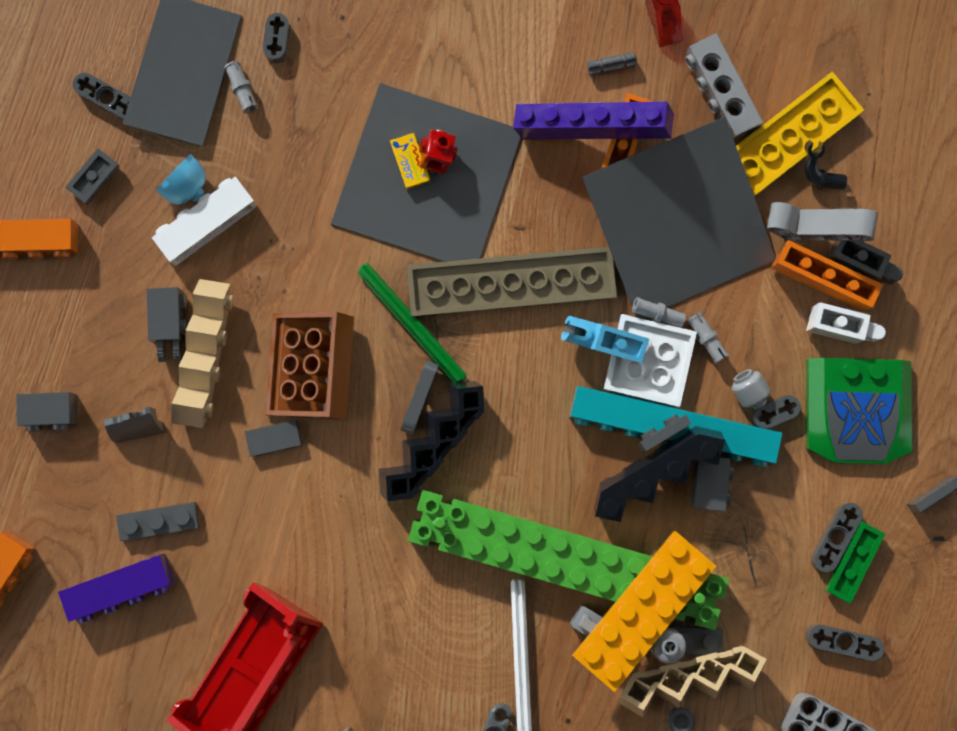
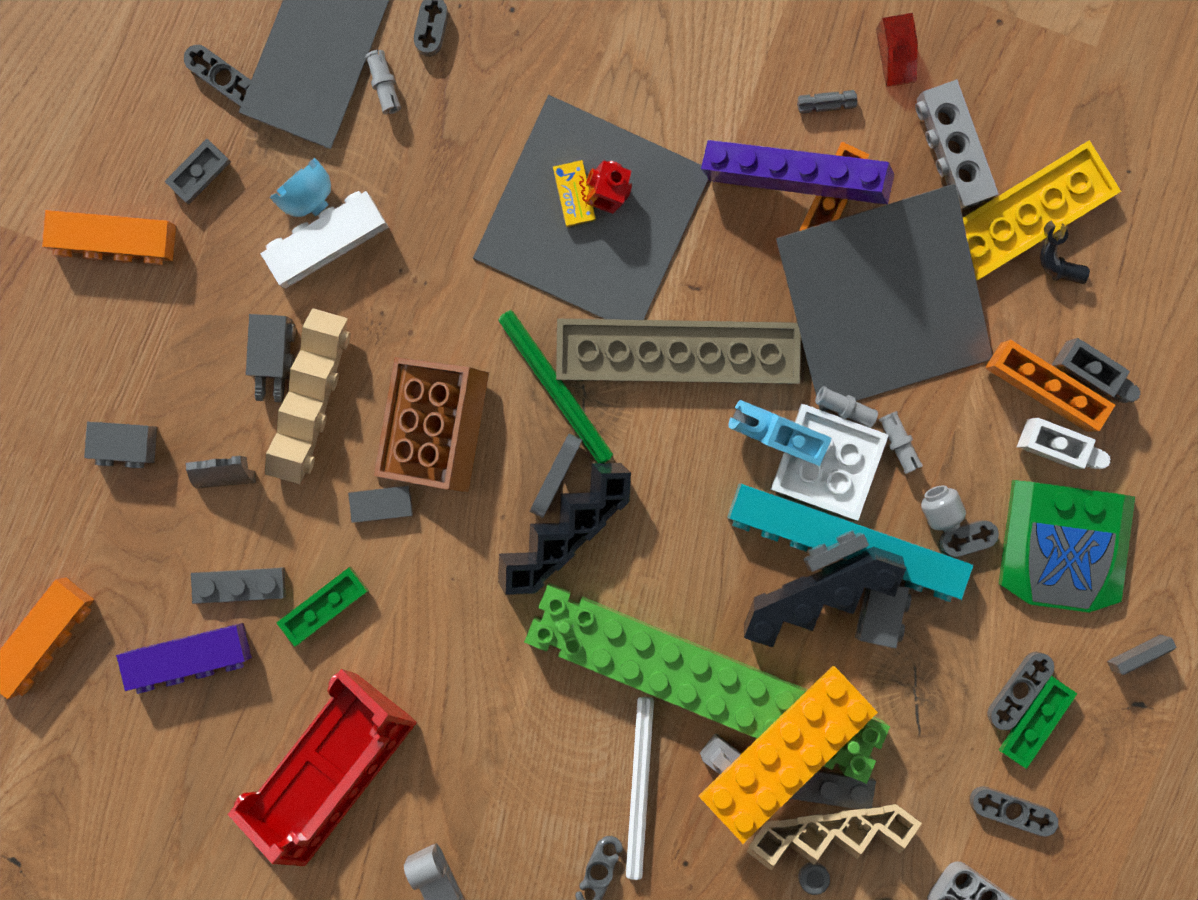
camera: 10 degrees right, 5 degrees up
(231, 531) = (322, 606): none -> green plate
(675, 649) = (818, 801): light grey head -> none
(821, 224) = (1053, 325): light grey beam -> none

